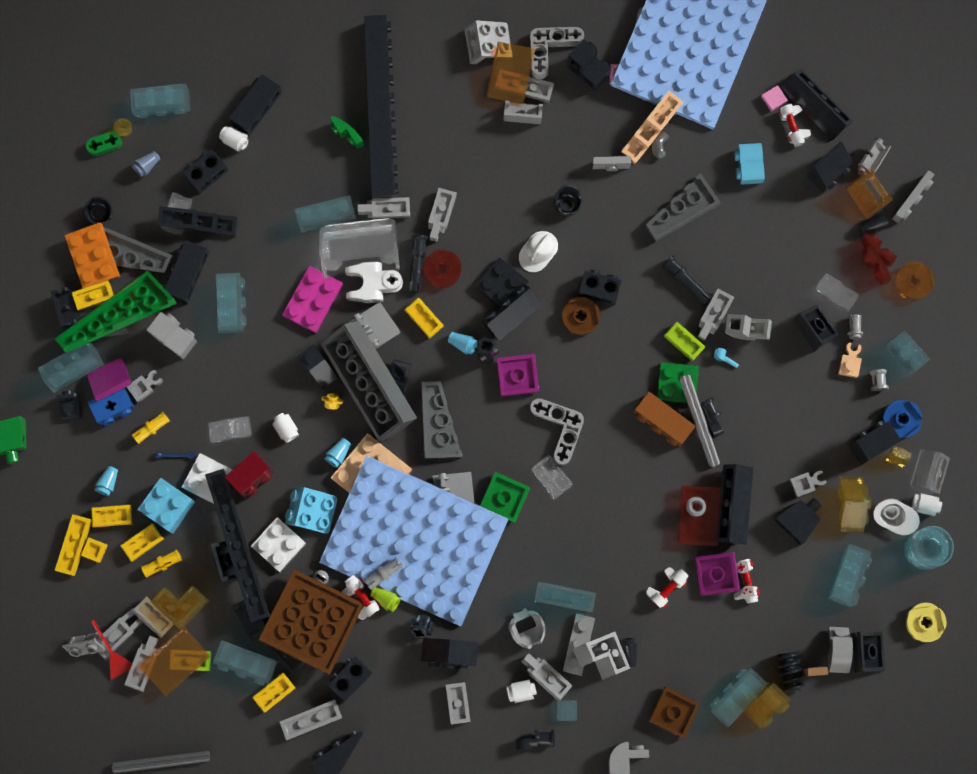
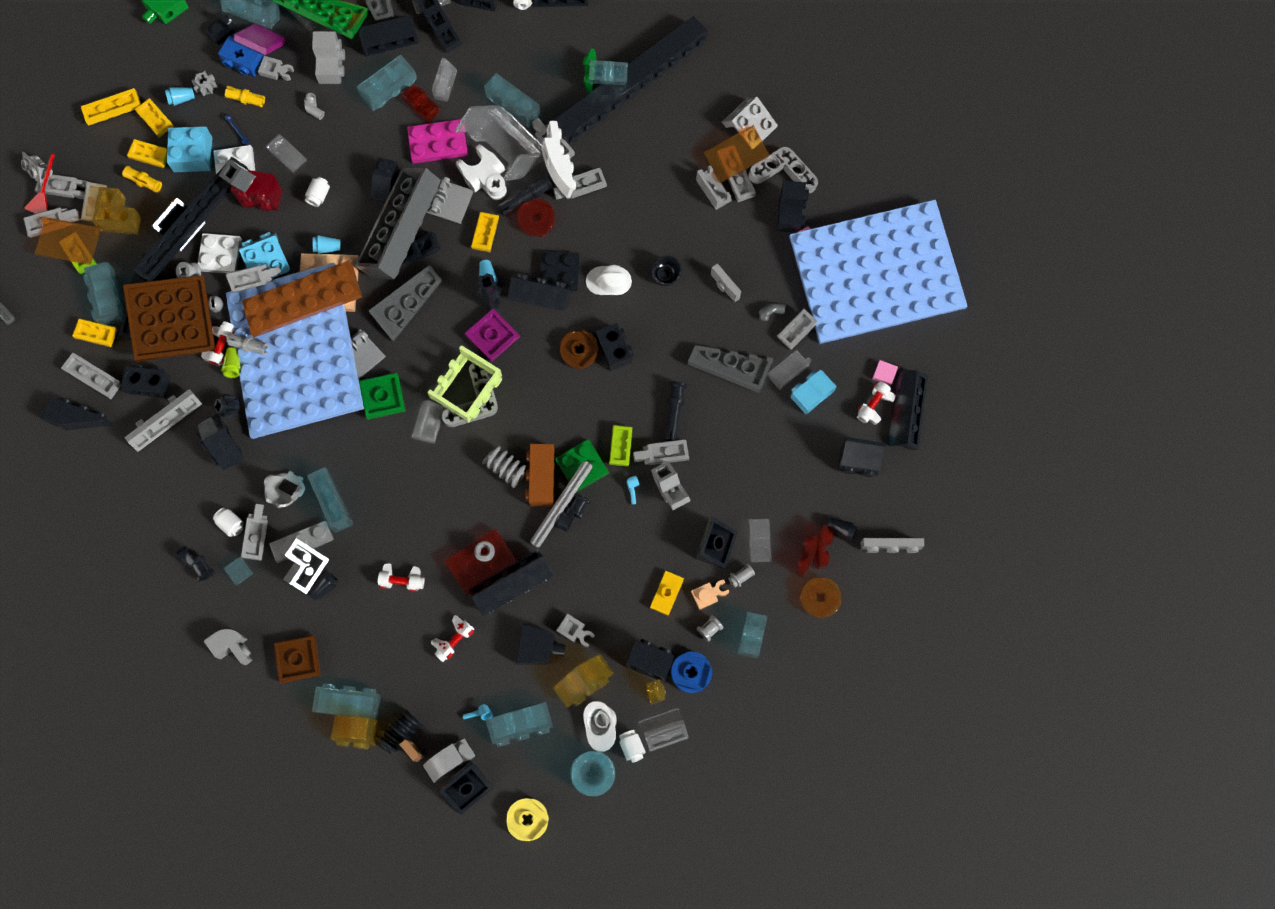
camera: 50 degrees right, 5 degrees down
(94, 550) = (117, 124): yellow plate -> none
(116, 449) = (204, 83): none -> light grey gear
(202, 380) = (311, 106): none -> light grey arm
(239, 480) = (237, 175): none -> dark grey brick
(263, 255) = (444, 80): none -> clear slope
(267, 288) = (421, 103): none -> clear red slope
(282, 576) = (187, 269): none -> light grey wheel
(325, 531) = (251, 277): none -> light grey hinge
(332, 401) = (364, 211): yellow plate -> none
(368, 120) = (608, 72): none -> clear light blue brick
(379, 503) = (301, 298): none -> dark orange plate
(395, 686) = (163, 420): none -> light grey hinge
(416, 219) = (556, 162): none -> white slope
(458, 703) = (183, 479): light grey plate -> none
(566, 416) = (455, 366): none -> yellowish green window
(636, 441) = (505, 466): none -> light grey piece
(652, 127) = (780, 292): light nougat slope -> none
(690, 137) = (797, 329): none -> light grey plate
(717, 574) = (441, 611): magenta tile -> none
(718, 168) = (788, 369): none -> clear panel
(819, 596) = (482, 711): none -> medium azure hand
(827, 392) = (667, 593): none -> yellow plate
(863, 196) = (858, 501): clear orange plate -> none
(874, 159) = (907, 487): light grey hinge -> none

